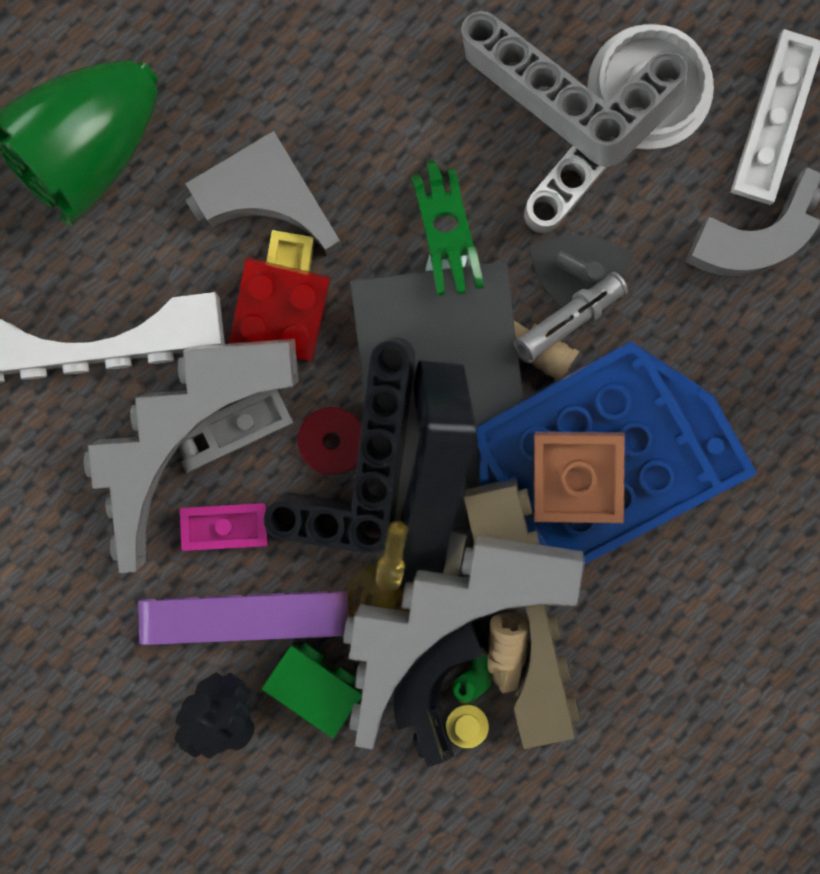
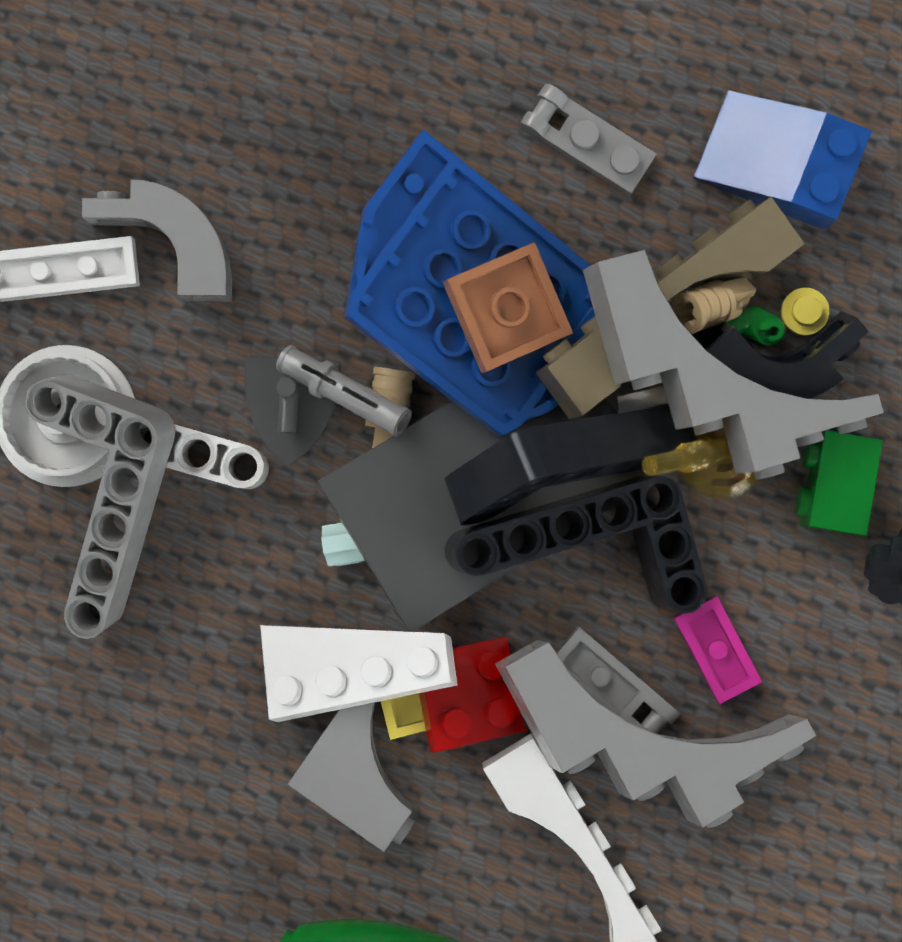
camera: 110 degrees left, 0 degrees up
(243, 617) = (802, 588): medium lavender beam -> none
(312, 436) = (594, 595): dark red piece -> none
(344, 219) = (344, 668): none -> white wing
(446, 244) = (328, 550): green piece -> none
(605, 766) = (785, 154): none -> slope
(687, 613) = (588, 140): none -> light grey plate

